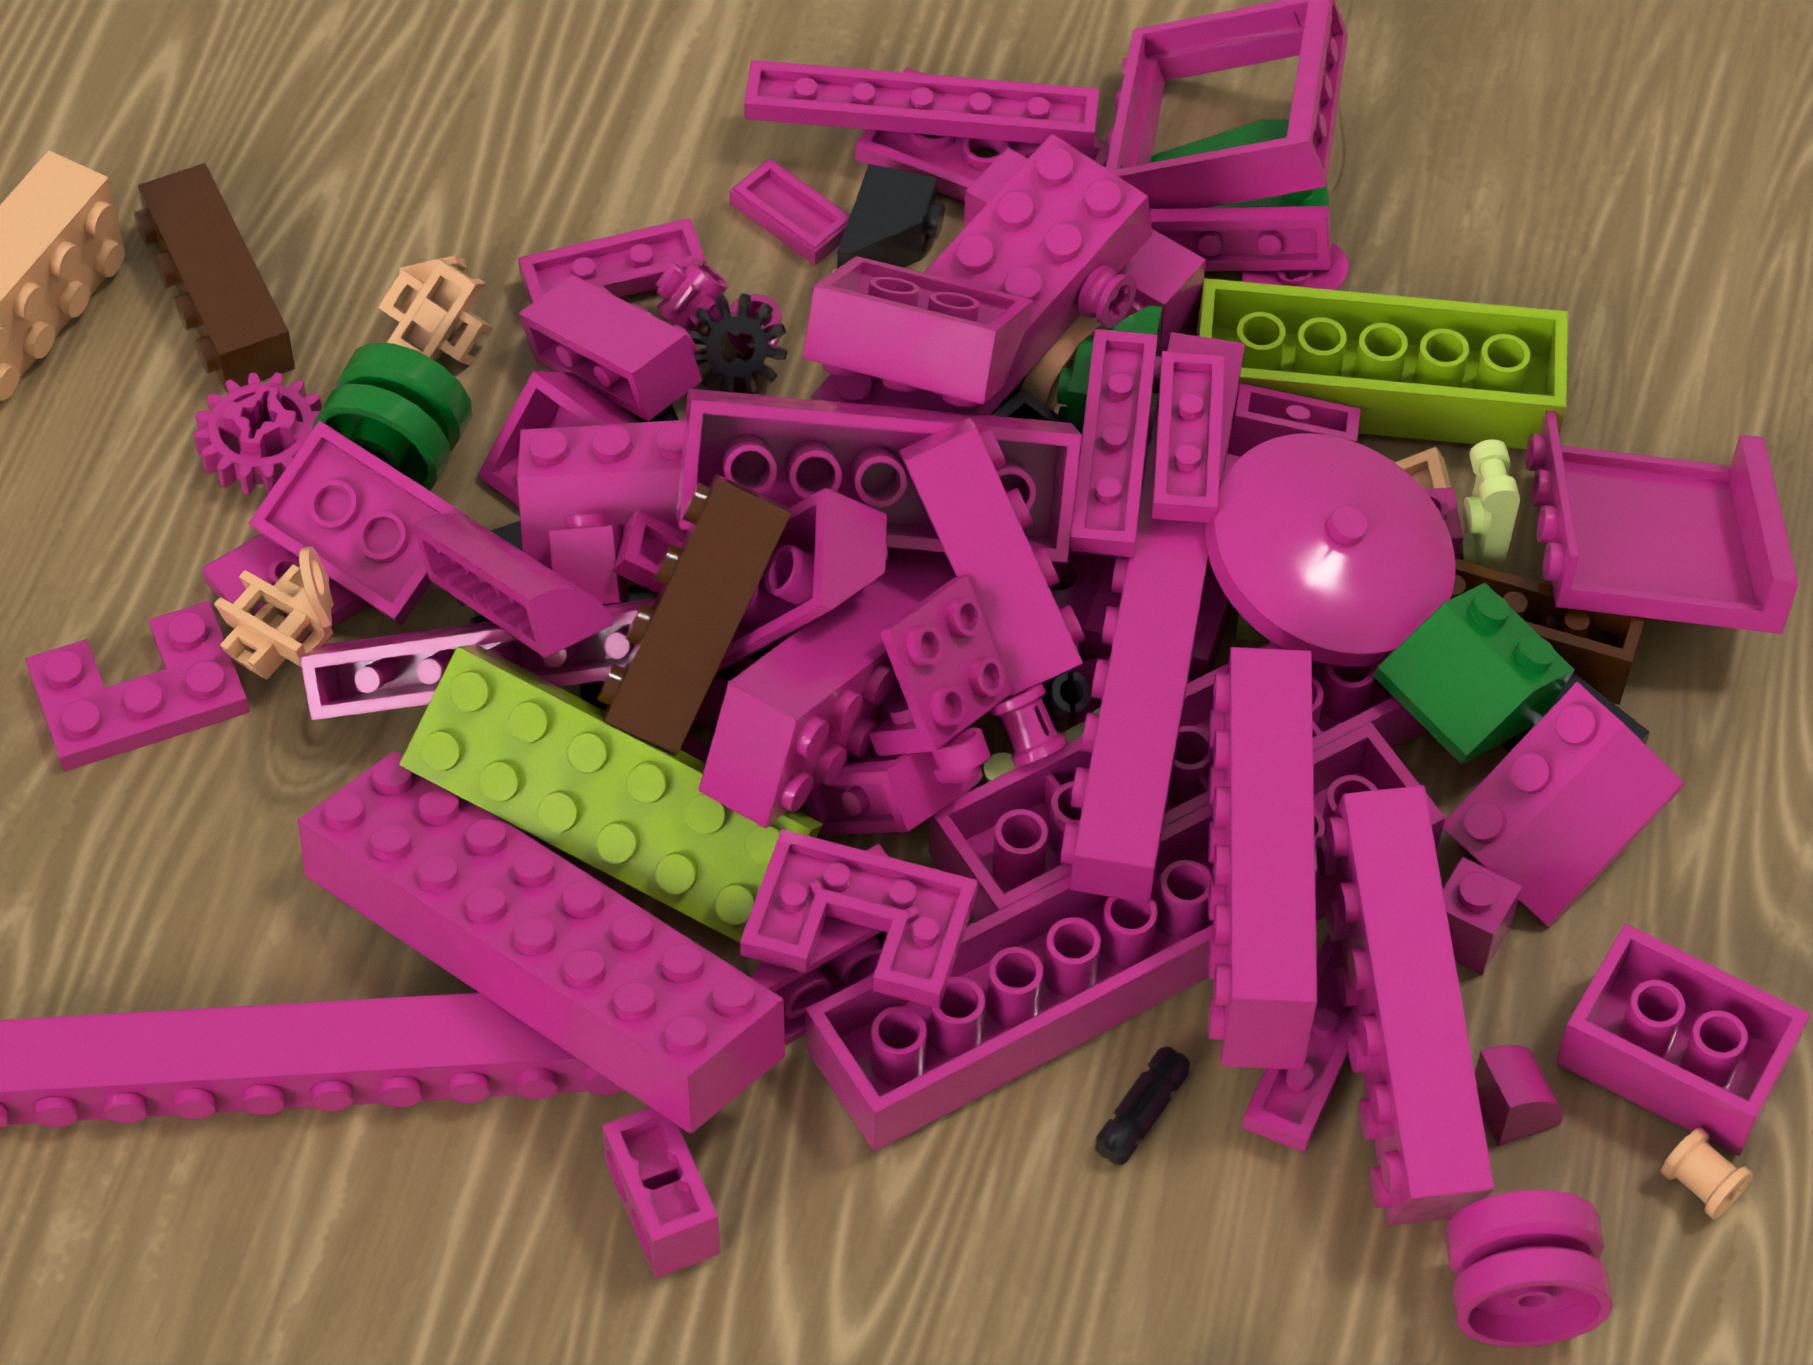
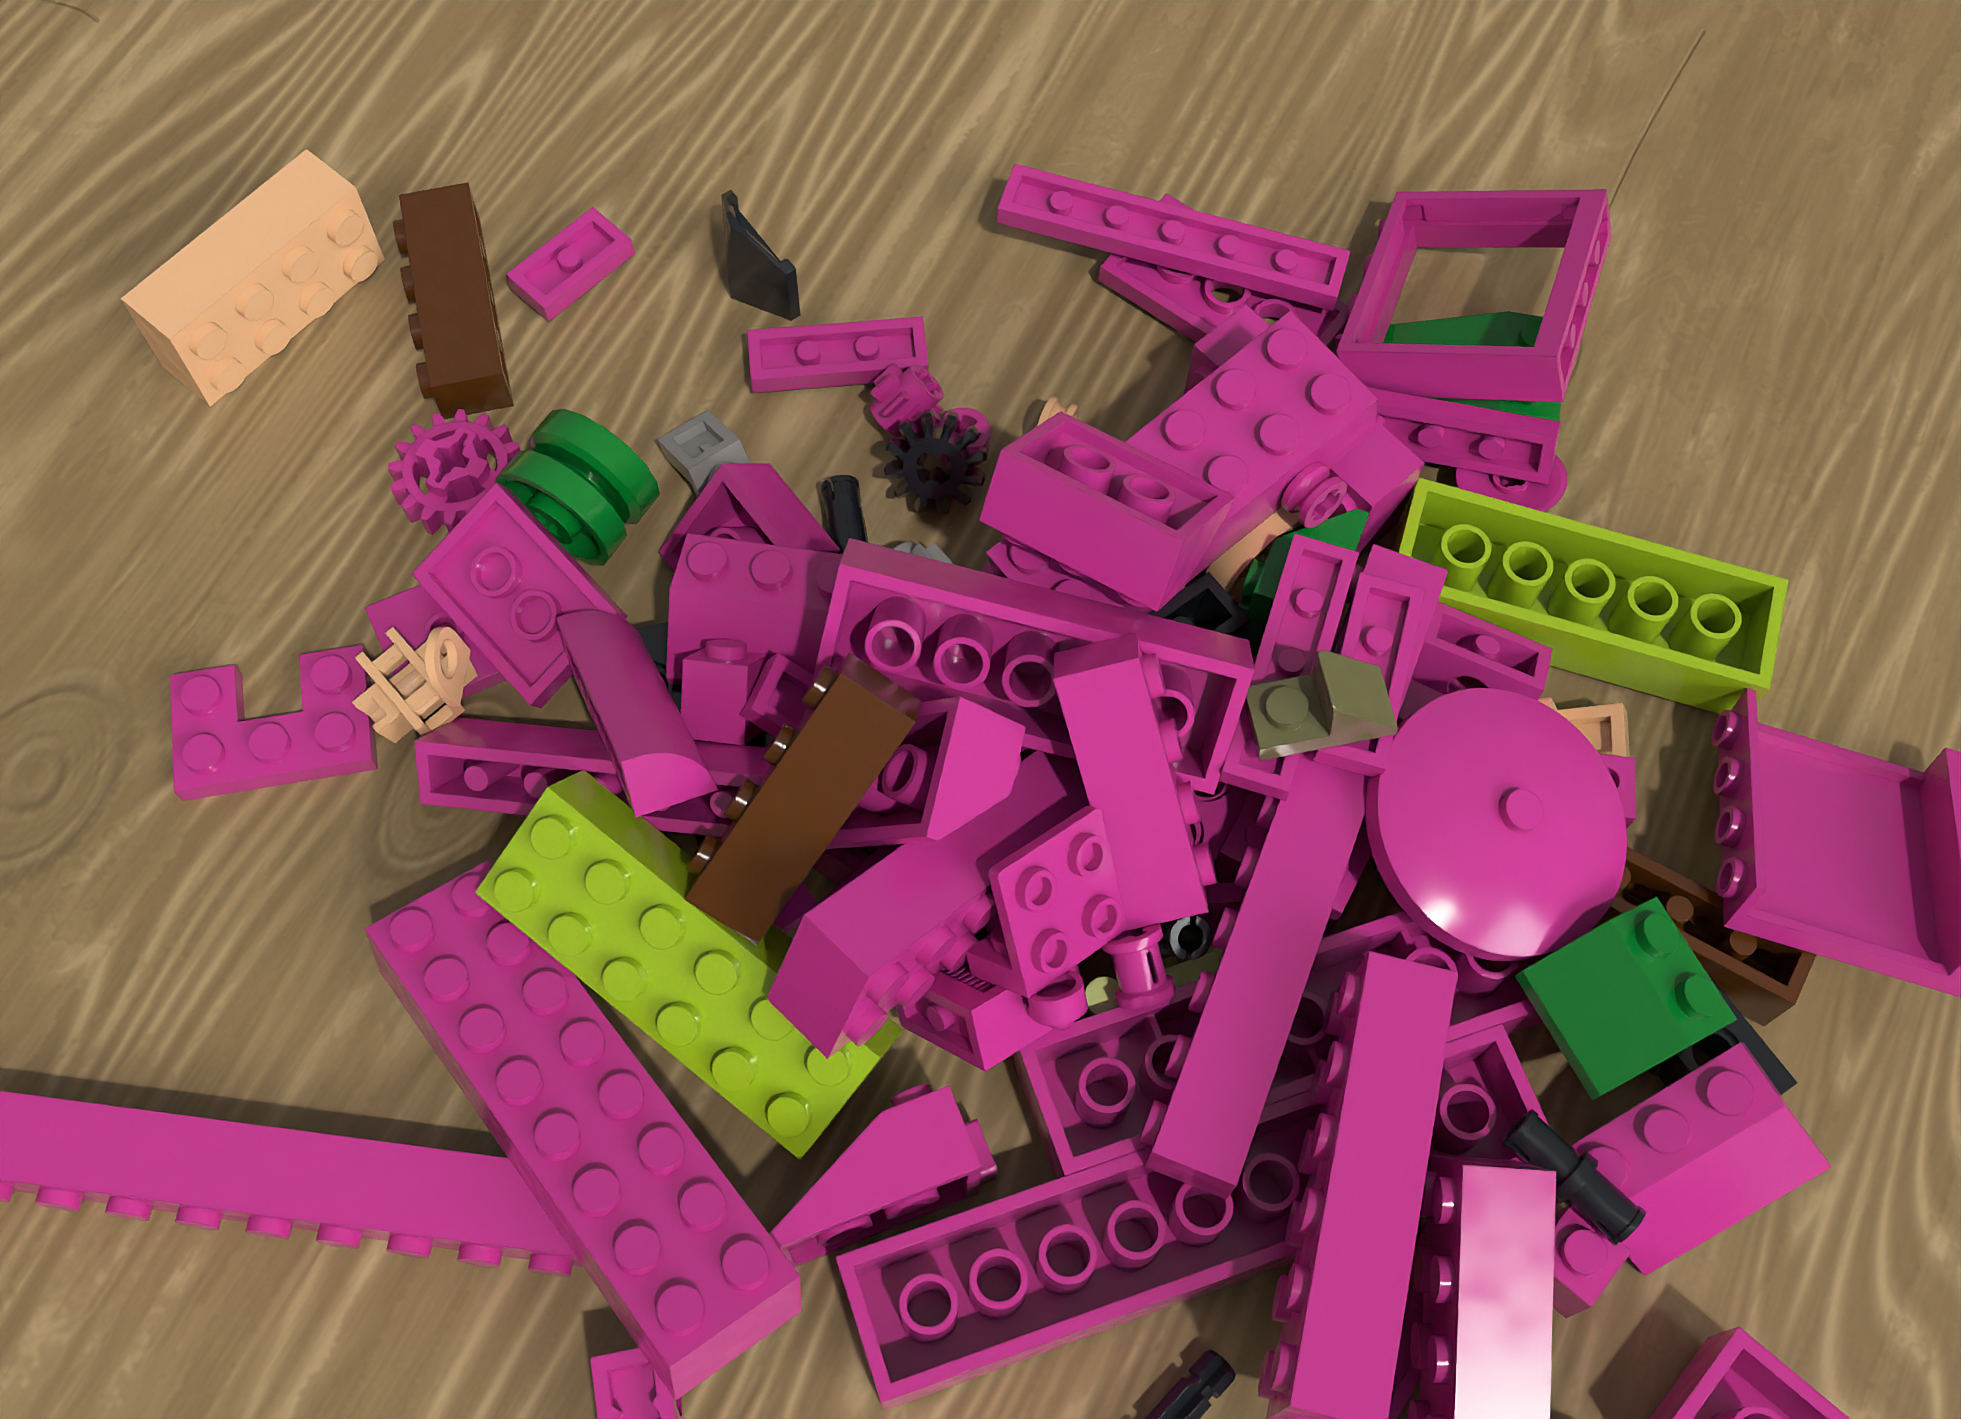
camera: 10 degrees right, 10 degrees up
(321, 226) = (570, 264): none -> dark pink plate
(426, 322) = (642, 385): light nougat piece -> none
(499, 373) = (701, 448): none -> light grey bracket
(512, 200) = (753, 268): none -> black slope
(612, 346) = (813, 445): dark pink brick -> none
(790, 211) = (1026, 323): dark pink tile -> none
(892, 218) = (1115, 355): black slope -> none
(914, 903) = (966, 1176): dark pink plate -> none
(1155, 464) = (1321, 710): none -> olive slope
(1461, 830) = (1575, 1177): none -> black pin
(1492, 507) = (1672, 799): yellowish green plate -> none

